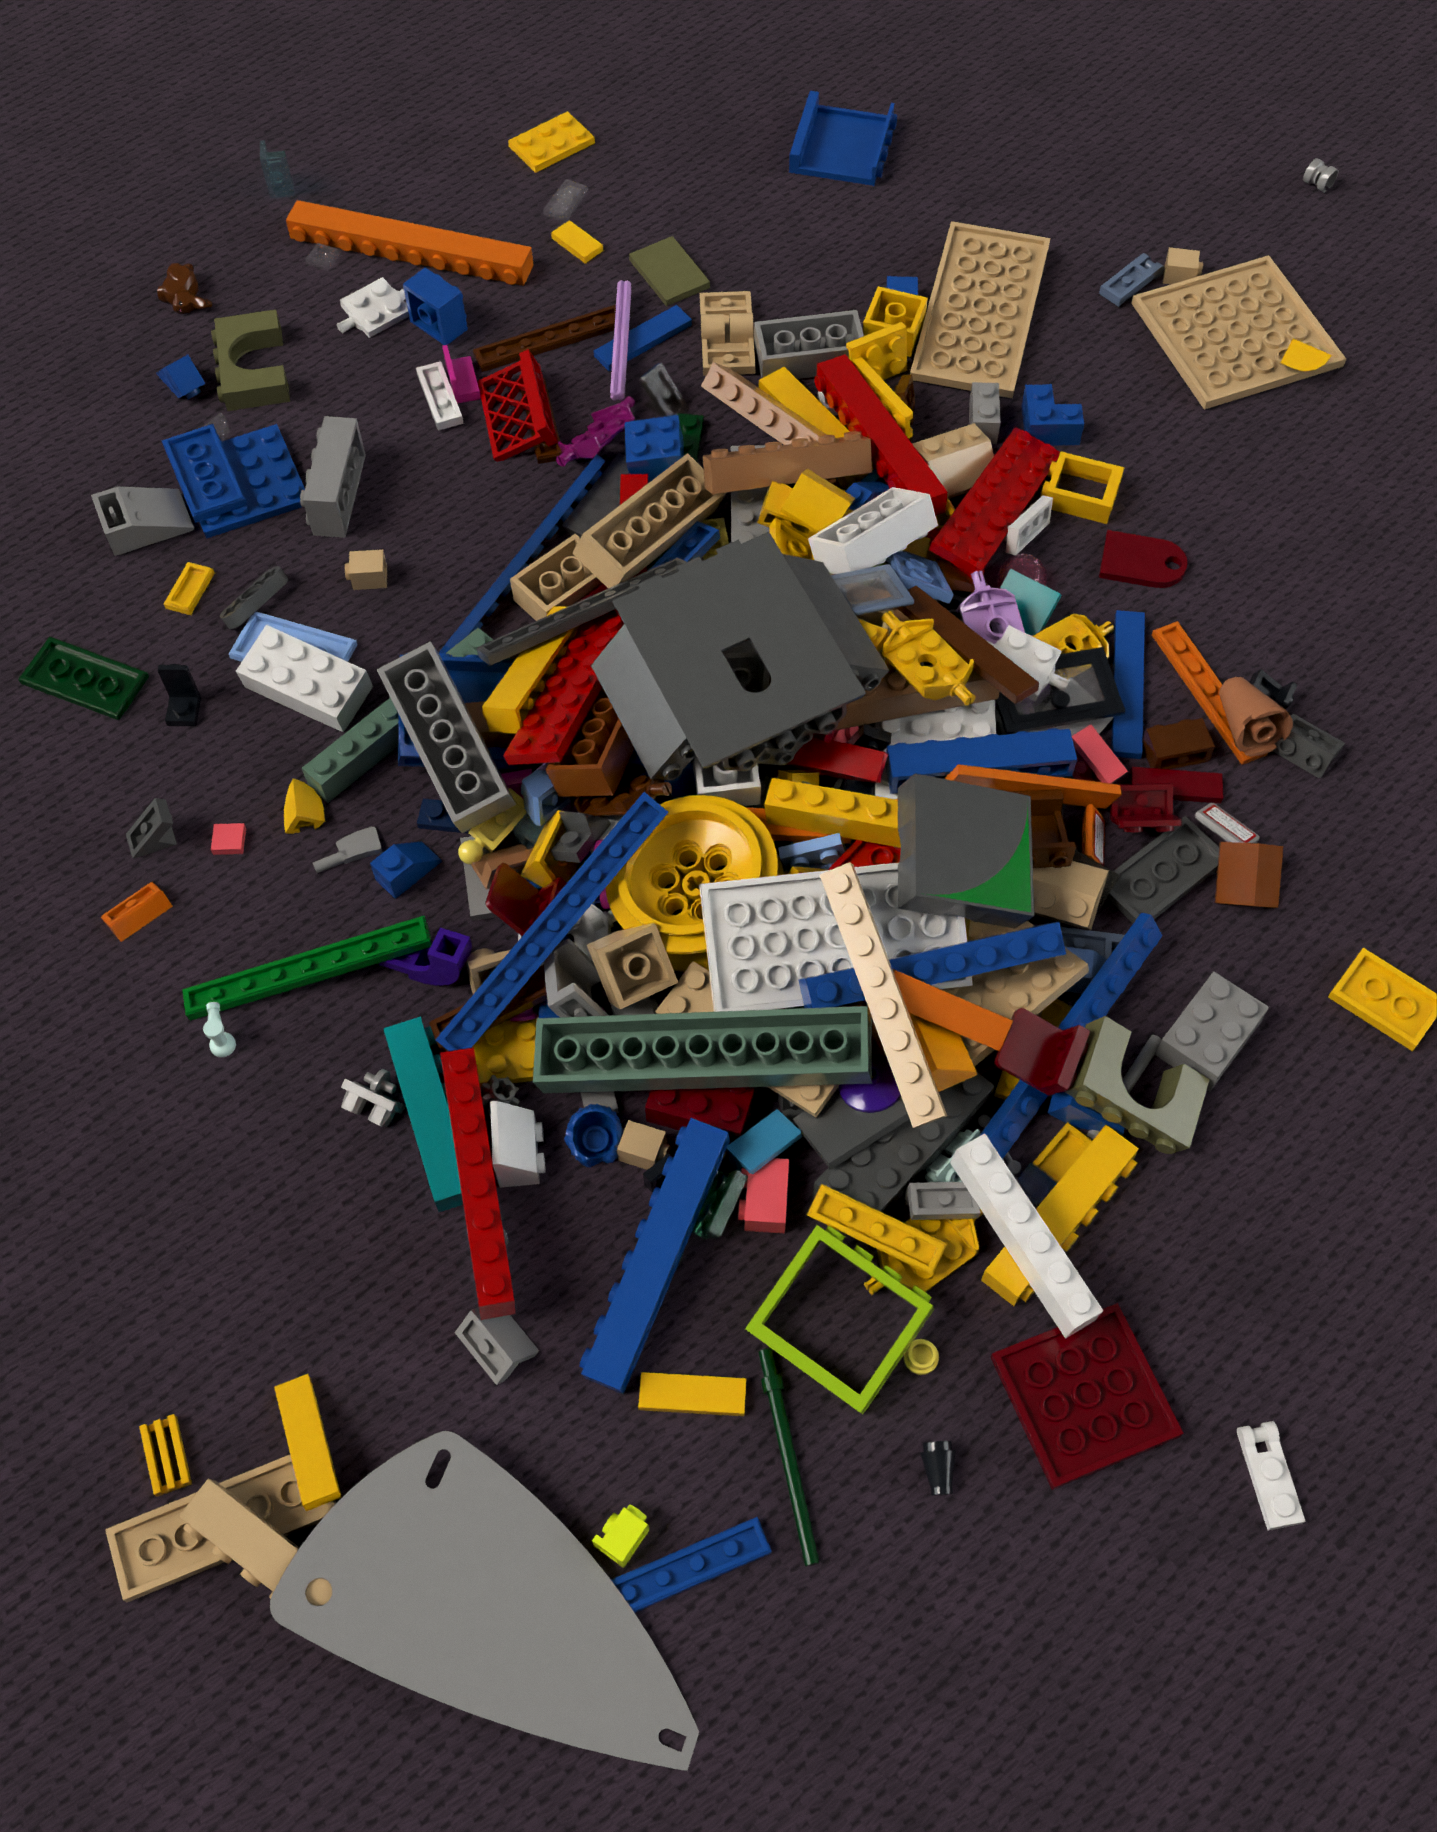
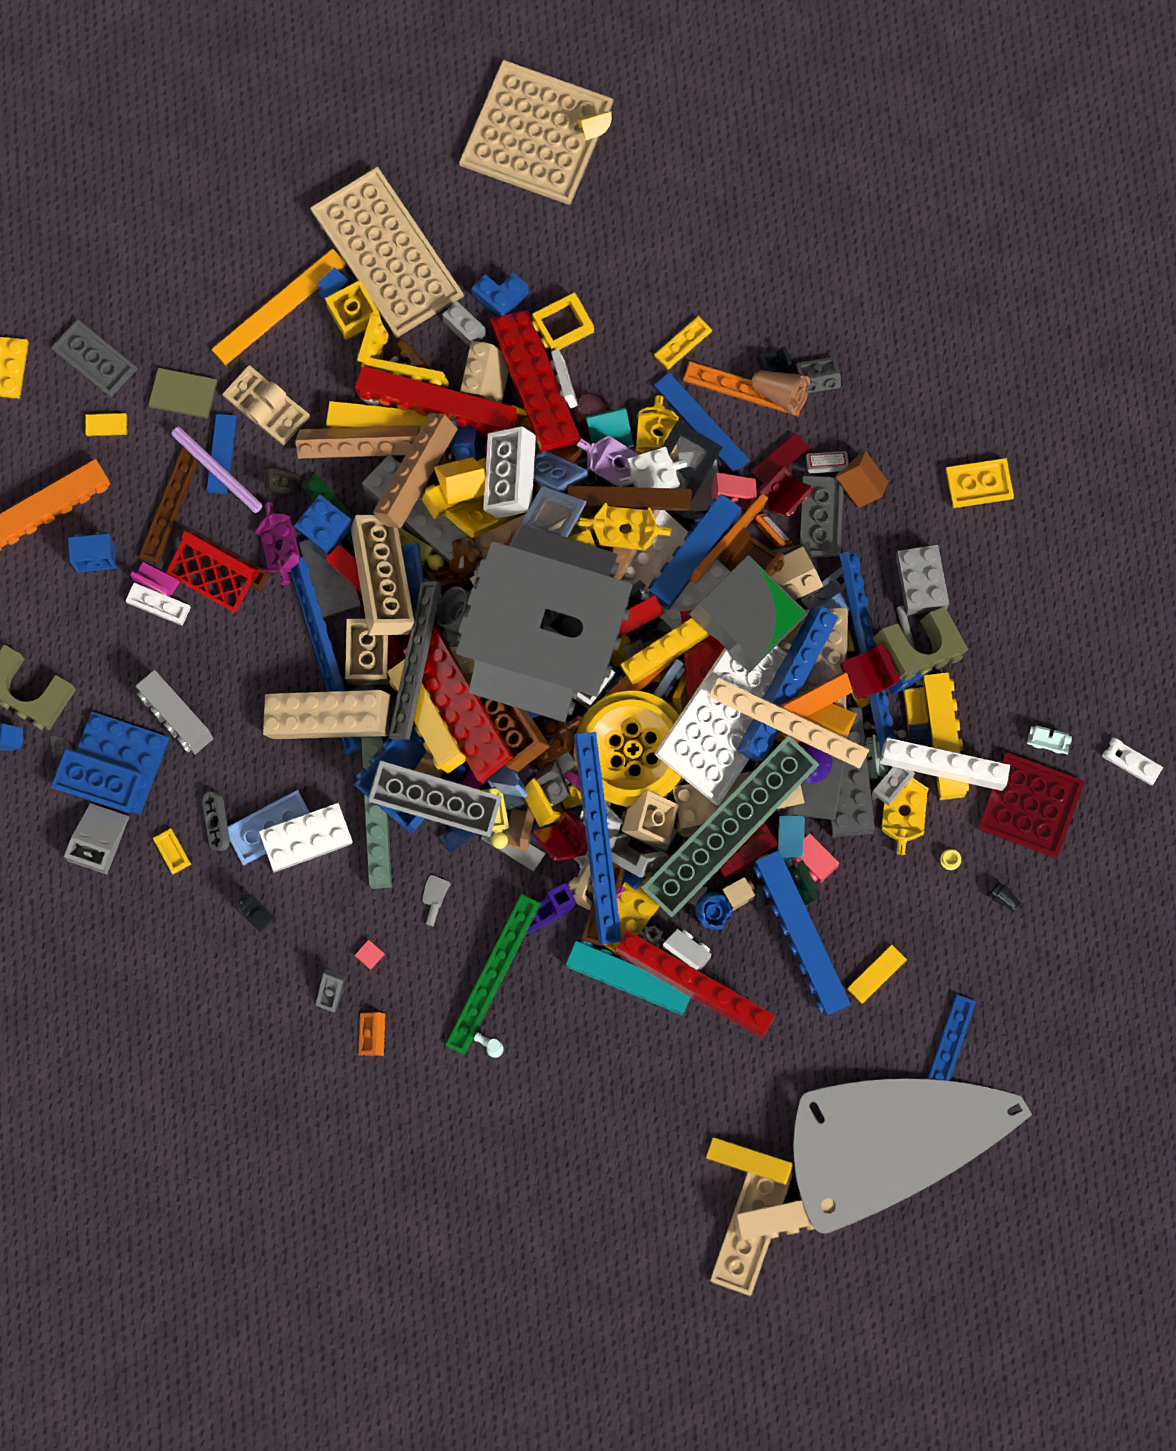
camera: 45 degrees left, 15 degrees up
(84, 678) = (184, 953): dark green tile -> none
(158, 1427) = (678, 1224): yellow tile -> none
(302, 807) = (386, 903): yellow brick -> none
(358, 1094) = (587, 1002): light grey hips -> none
(367, 569) = (255, 746): tan brick -> none
(373, 308) = (48, 583): white plate -> none
(403, 866) = (473, 879): blue slope -> none
(454, 590) = (326, 714): none -> tan brick
(496, 1344) = (777, 1042): light grey panel -> none
(565, 201) = (64, 402): clear plate -> none
(622, 1535) = (913, 1058): neon yellow brick -> none
(630, 192) = (94, 358): none -> dark grey tile
(773, 1387) = (905, 936): dark green bar -> none
(804, 341) = (325, 372): light grey brick -> none
(824, 275) = (277, 308): none -> light orange tile
(841, 142) = (177, 201): blue panel -> none
(876, 1229) = (880, 825): yellow tile -> none
(886, 1276) = (889, 845): lime window -> none
(1131, 279) = (444, 149): sand blue plate -> none
(1141, 560) = (633, 340): dark red tile -> none
(1178, 744) = (760, 438): reddish brown brick -> none
(1181, 265) = (464, 114): tan brick -> none
(1189, 602) = (682, 342): none -> yellow tile
(1194, 1357) = (1040, 738): none -> light aqua hinge

